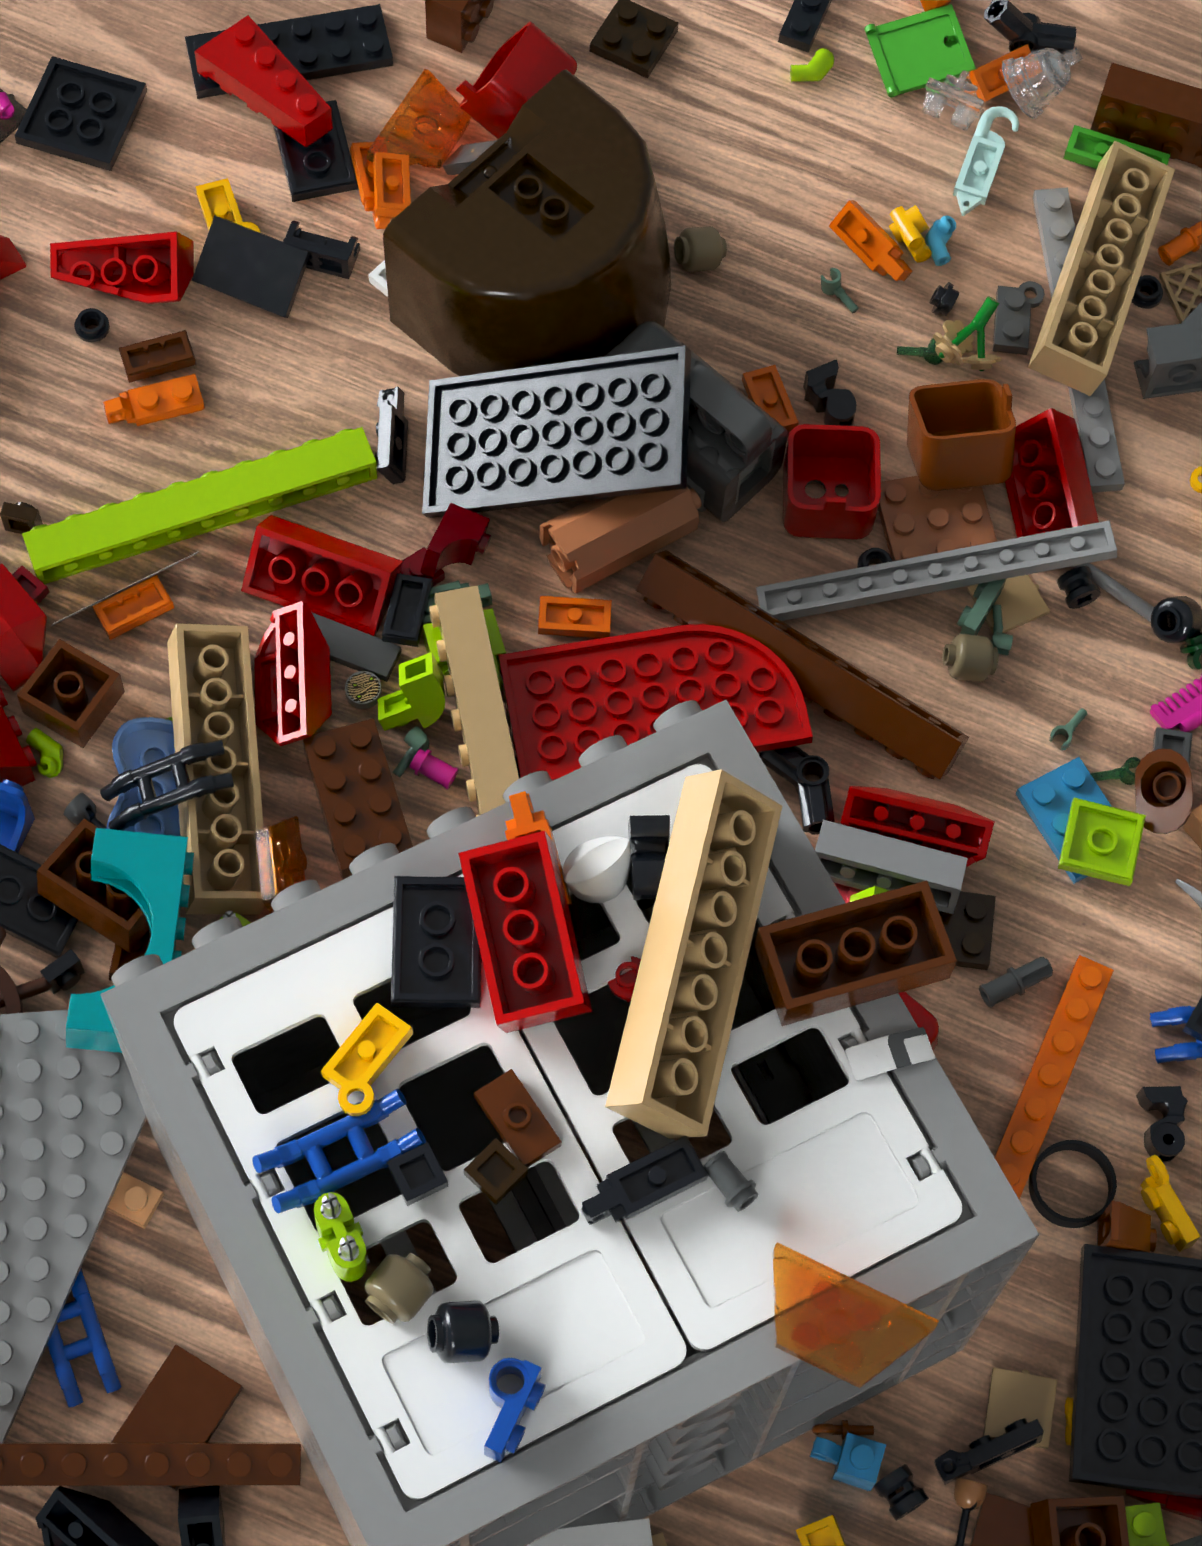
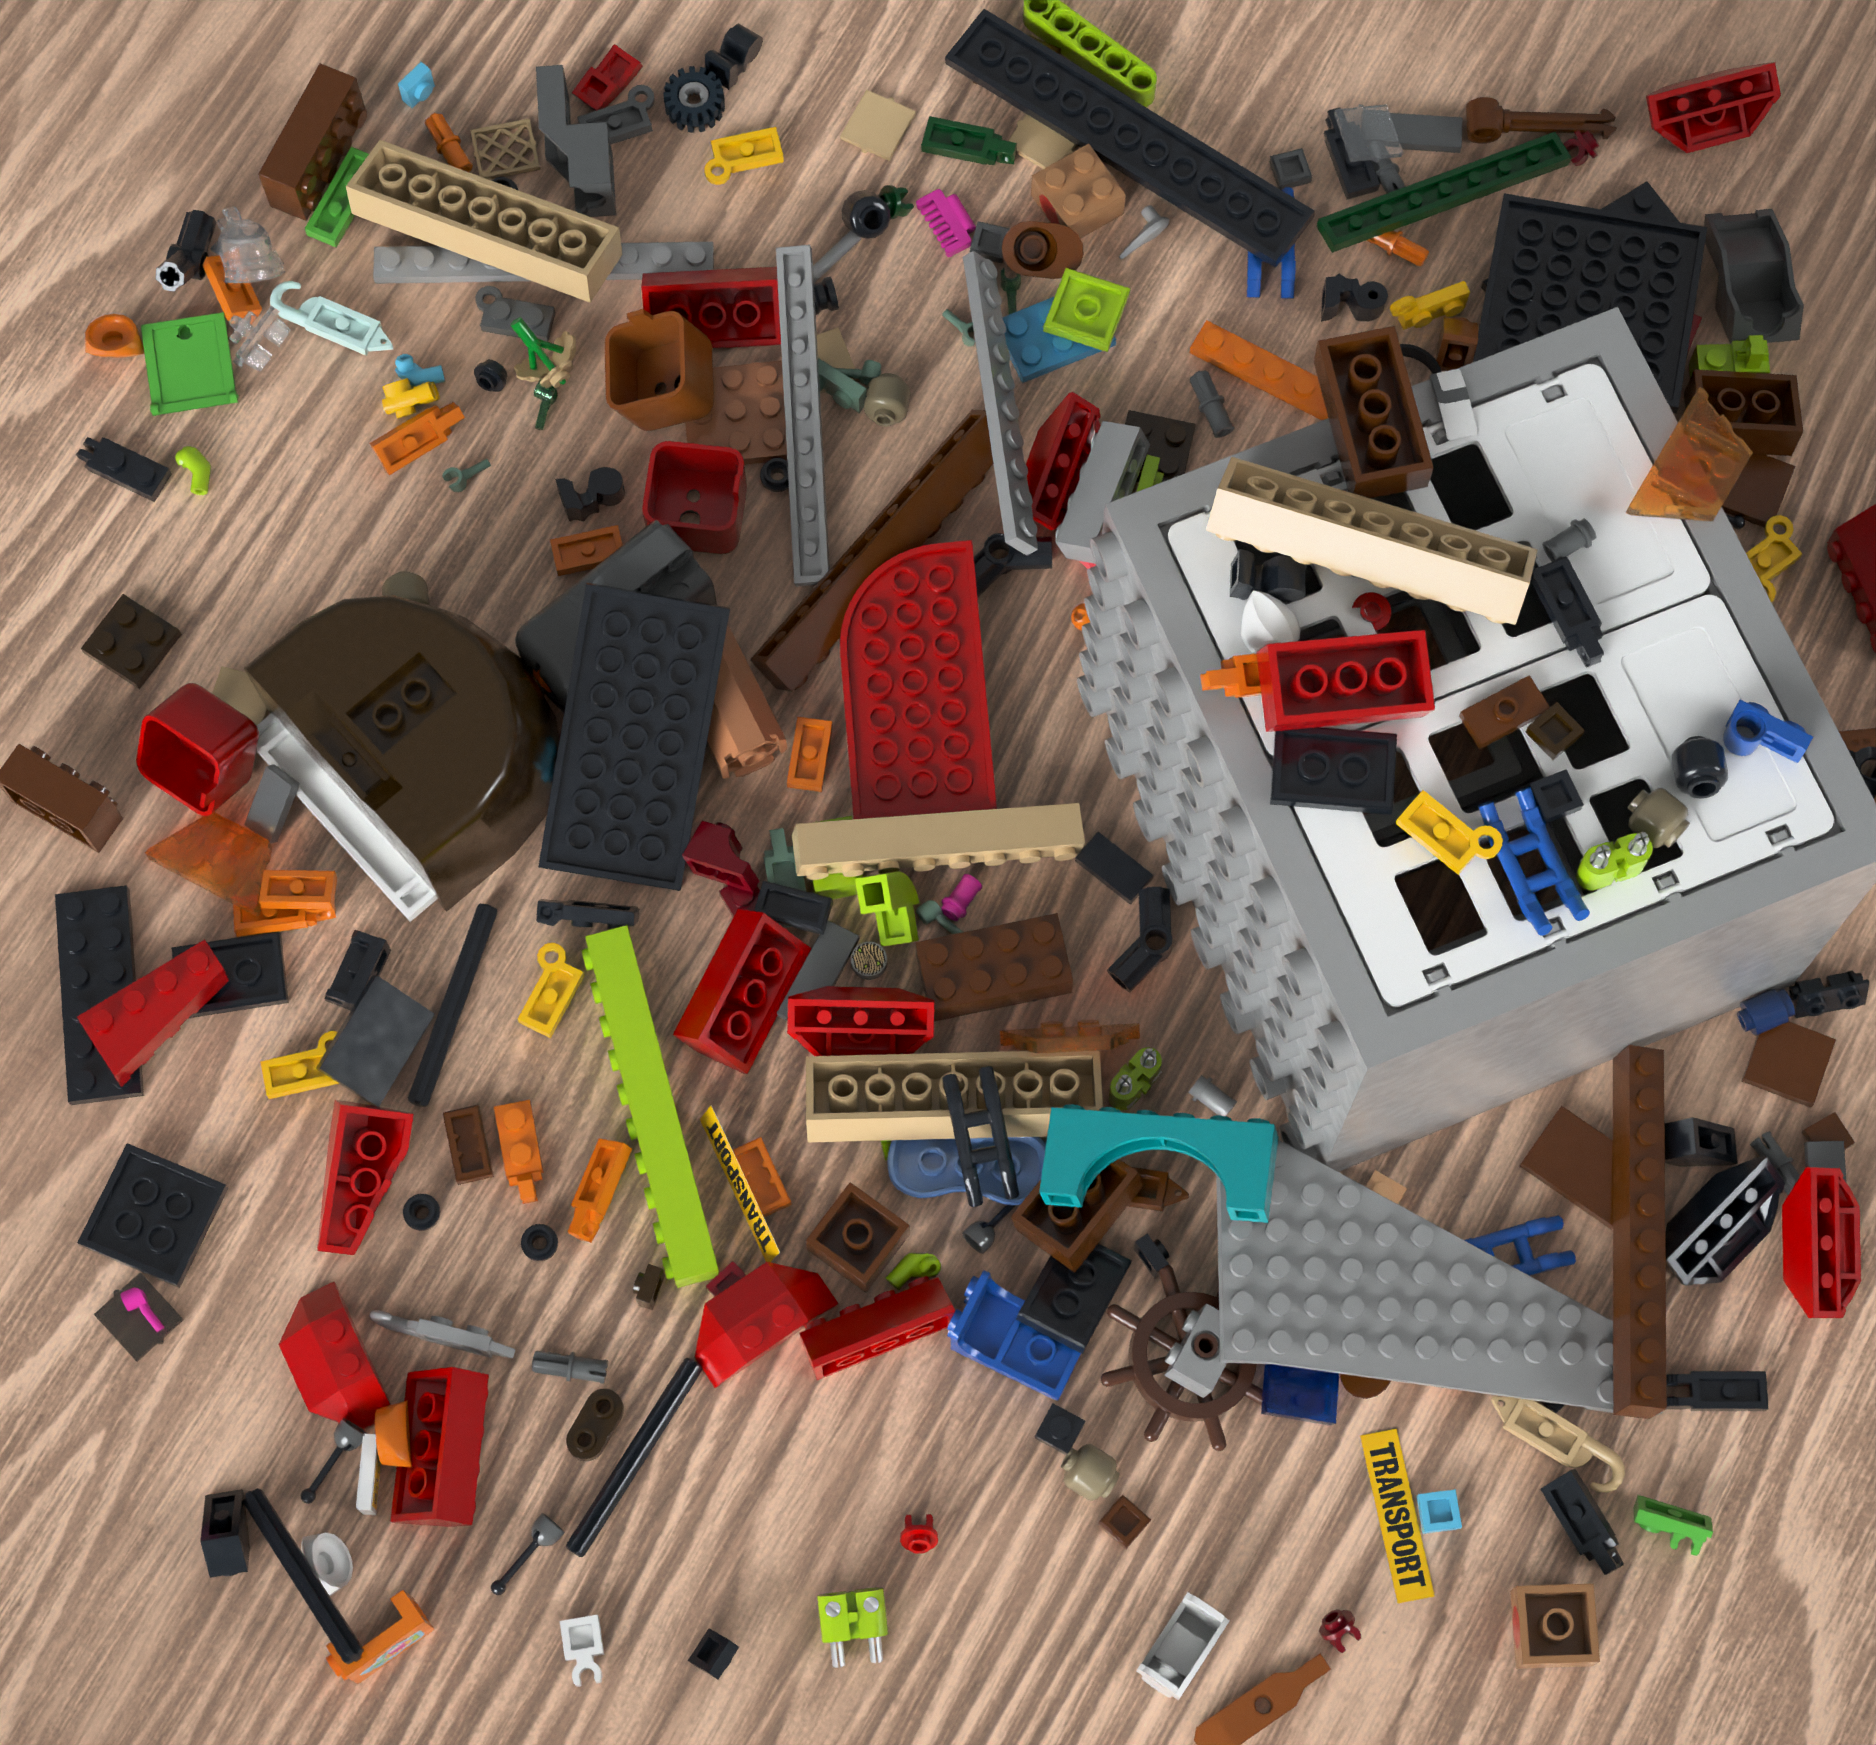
camera: 80 degrees left, 5 degrees up
(61, 417) = (539, 1231): none -> black plate
(117, 466) = (598, 1187): none -> orange hinge
(295, 331) = (452, 1005): none -> black axle
(310, 411) = (552, 992): none -> yellow hinge
(973, 755) = (1000, 404): none -> light grey plate

